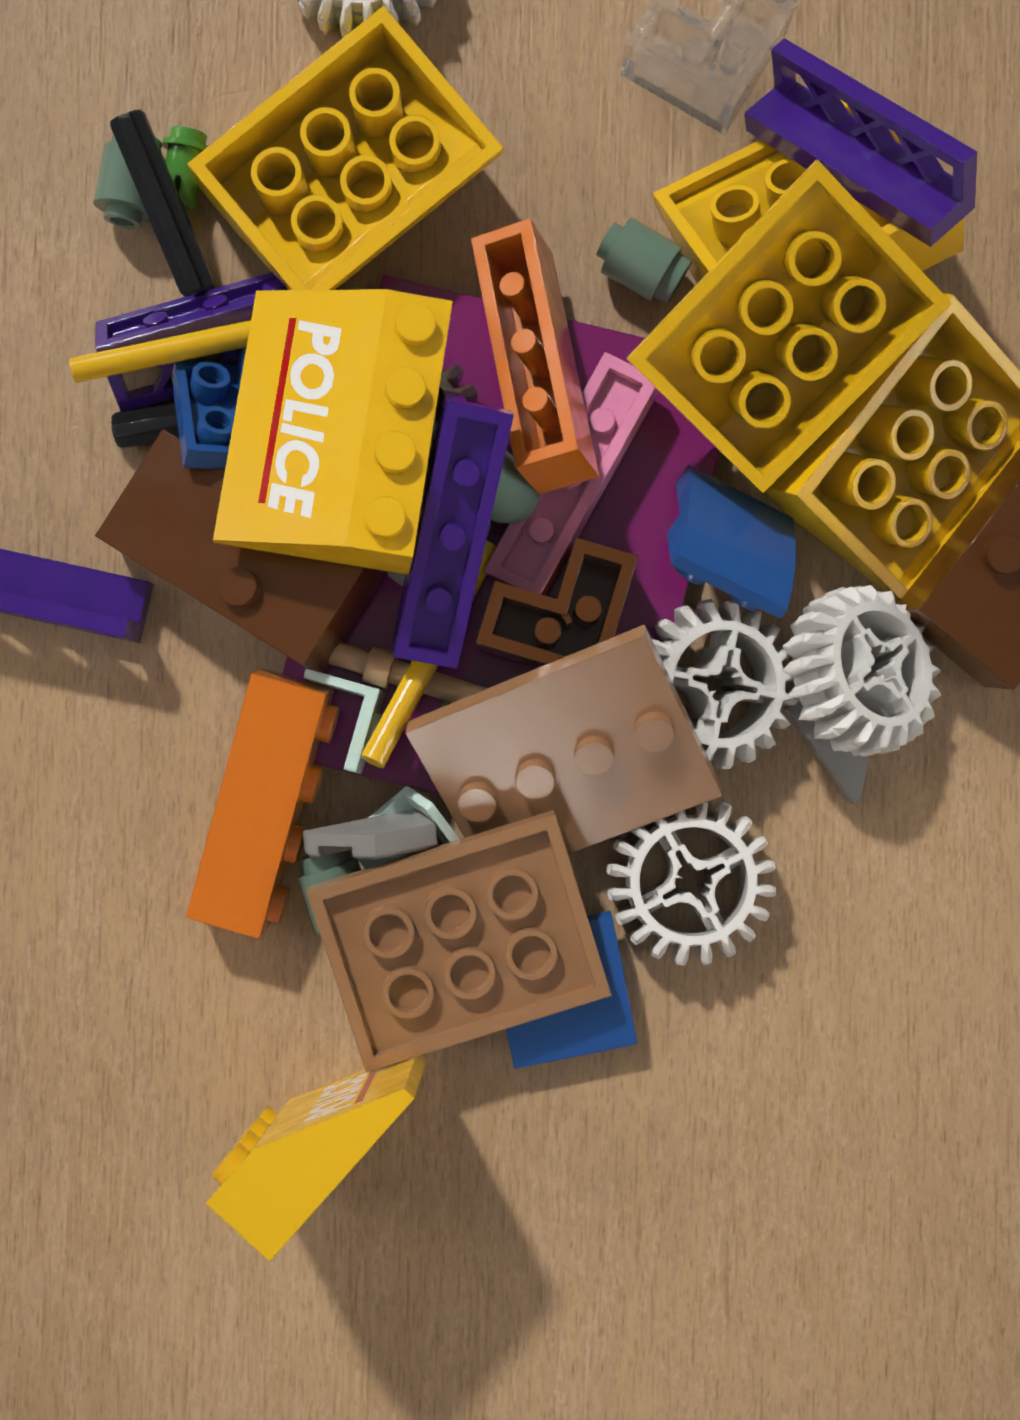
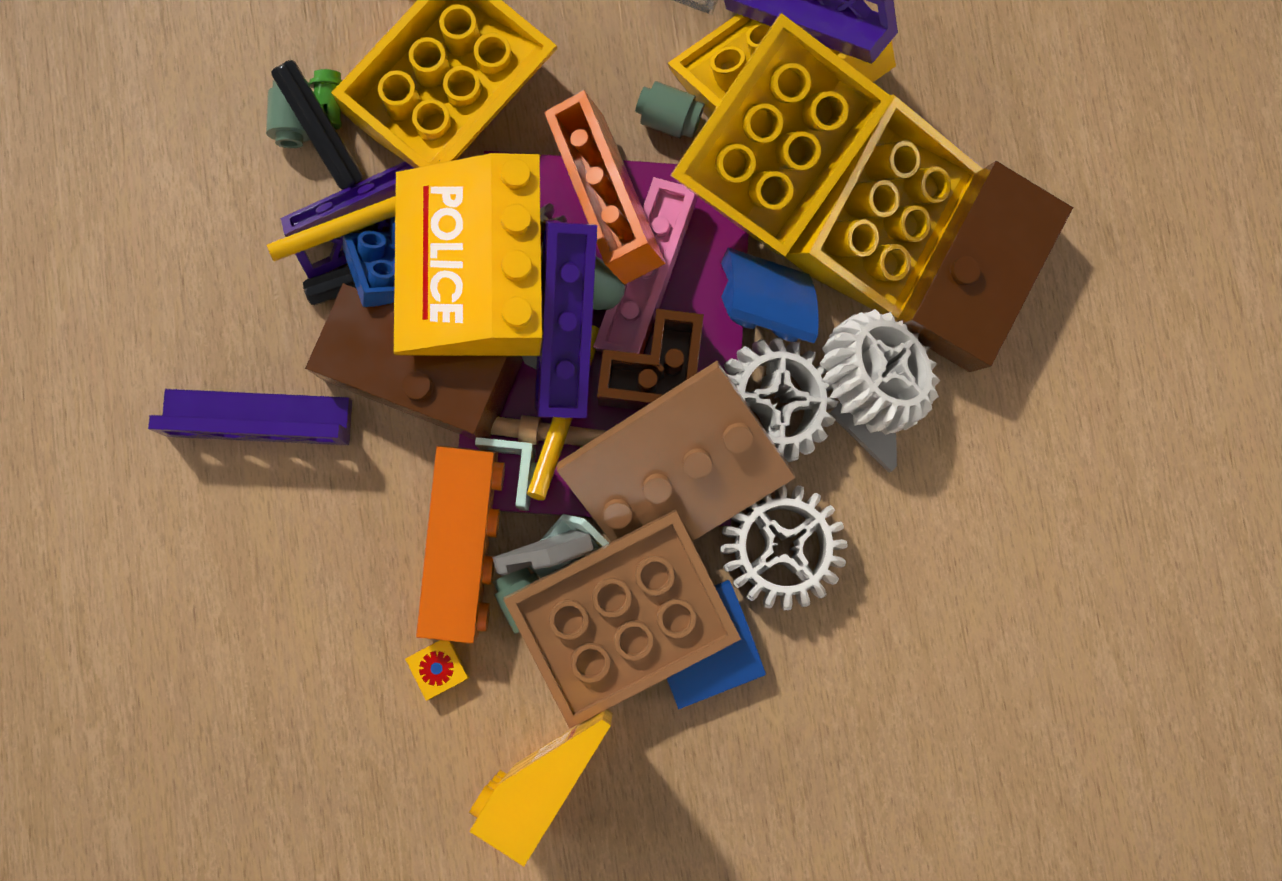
camera: 15 degrees left, 5 degrees down
(208, 960) = (437, 668): none -> yellow tile

